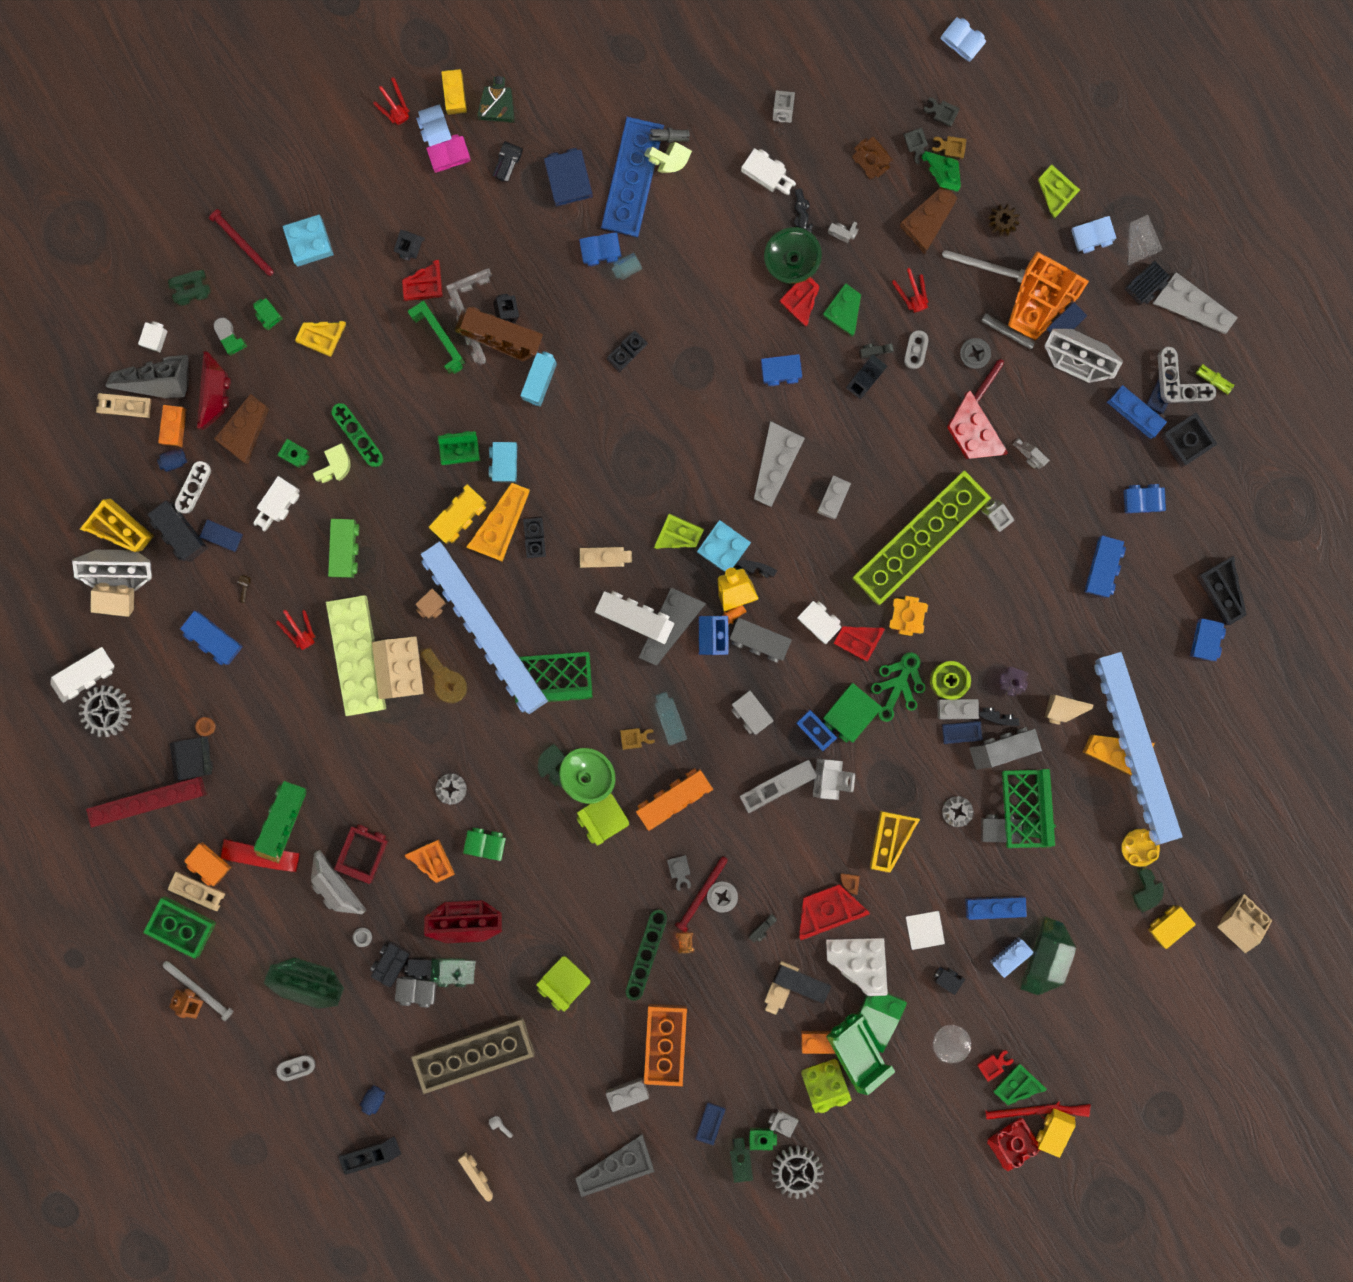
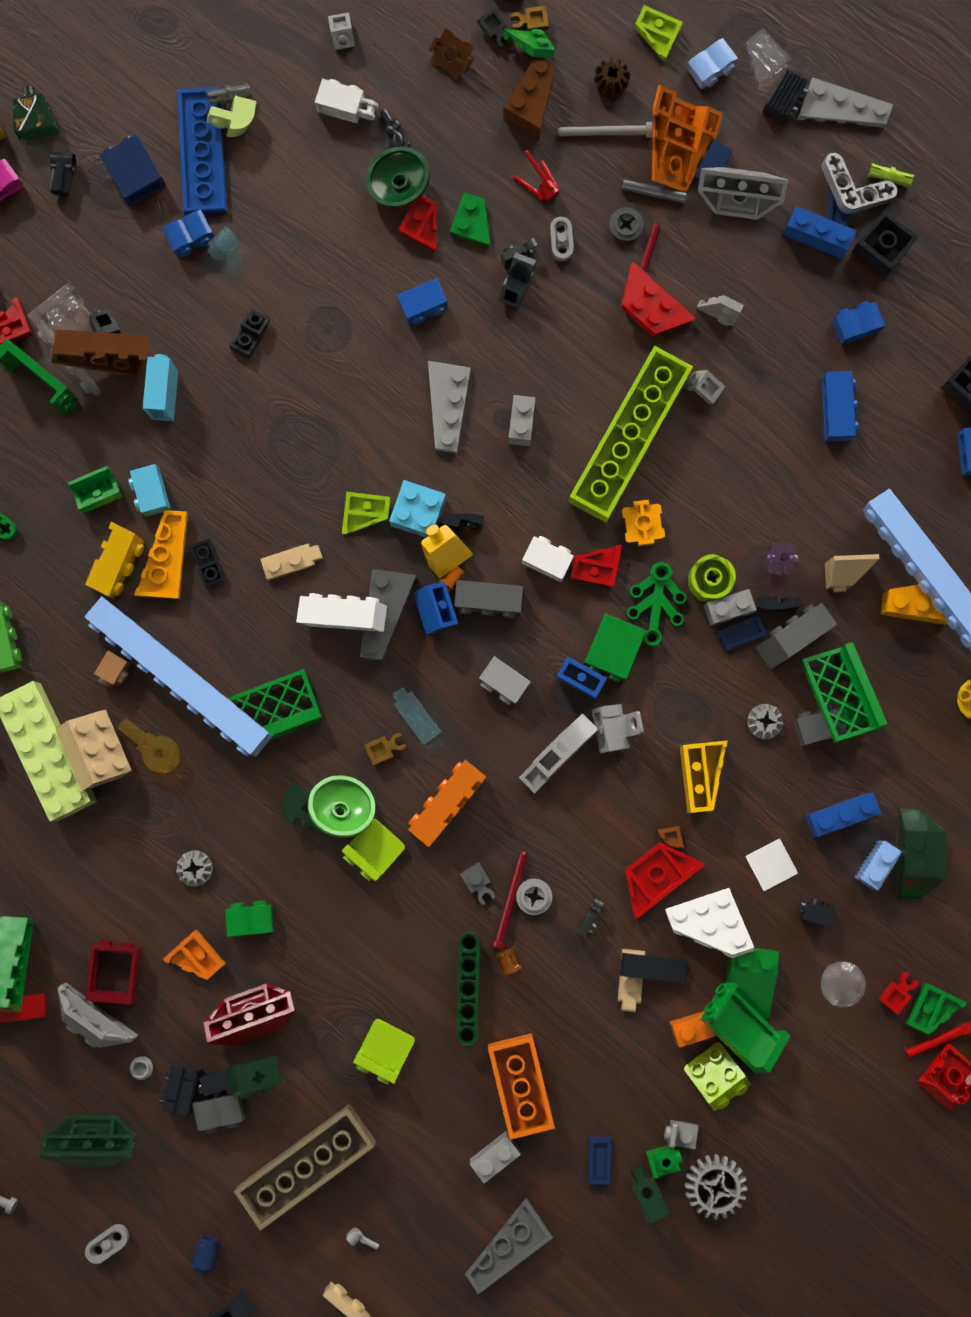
camera: 15 degrees left, 5 degrees down
(840, 232) = (442, 141): light grey bracket -> none

